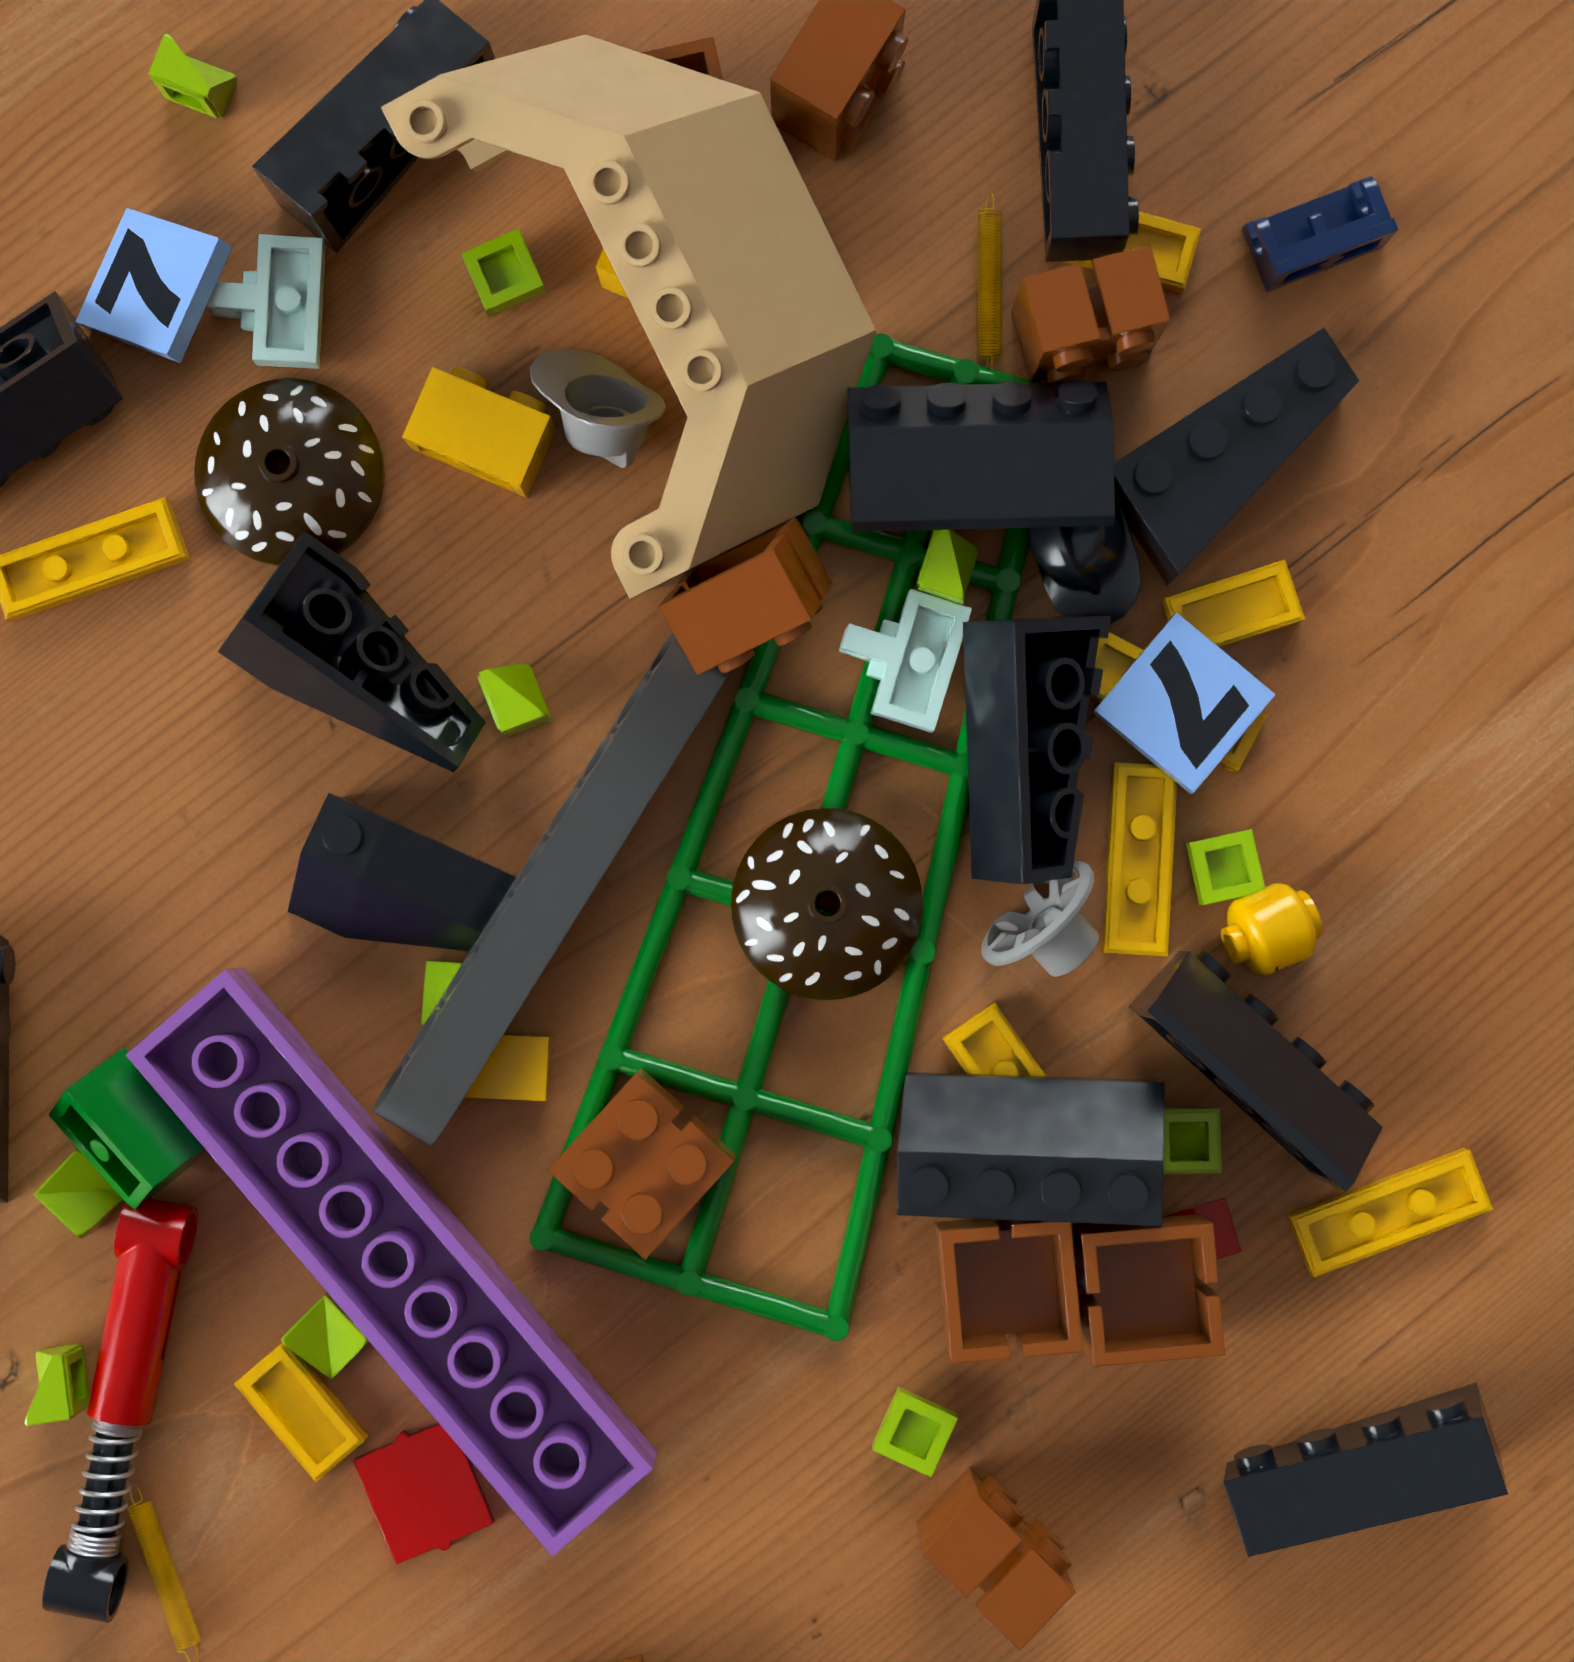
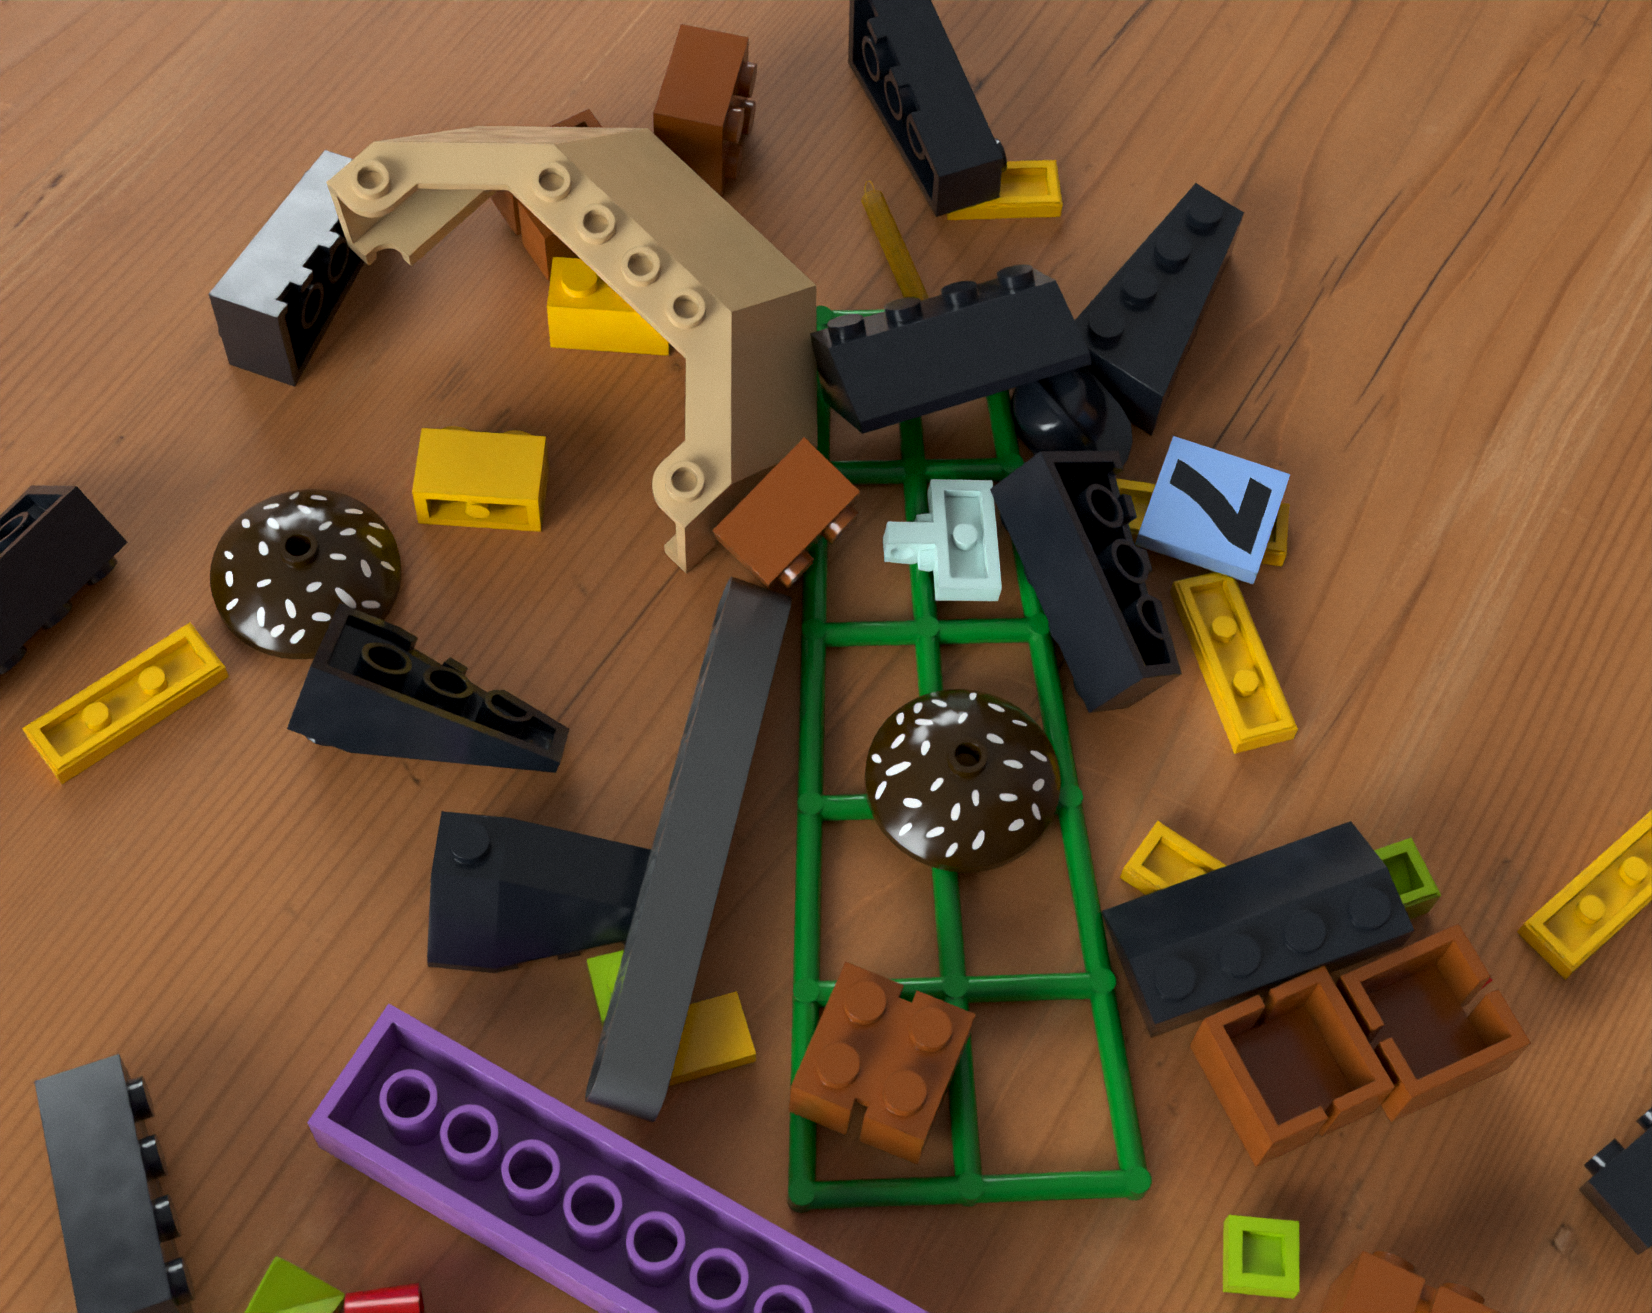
camera: 30 degrees left, 25 degrees down
(126, 1129) = (326, 1216): green brick -> none
(153, 284) = (133, 442): light blue tile -> none
(191, 80) = (116, 281): lime slope -> none
(279, 301) = (252, 431): light aqua hinge -> none
(503, 272) = (458, 351): lime plate -> none
(514, 698) = (592, 697): lime slope -> none
(598, 402) = (588, 433): light grey piece -> none
(947, 566) = (952, 452): lime slope -> none
(1050, 930) = (1184, 733): light grey wheel -> none
(1073, 327) = (976, 236): dark orange piece -> none
(1225, 867) = (1313, 636): lime plate -> none
(1240, 605) = (1229, 423): yellow tile -> none
(1259, 1068) = (1427, 795): black slope -> none
(1272, 929) = (1380, 673): yellow head -> none
(1320, 233) = (1157, 138): dark blue hinge -> none

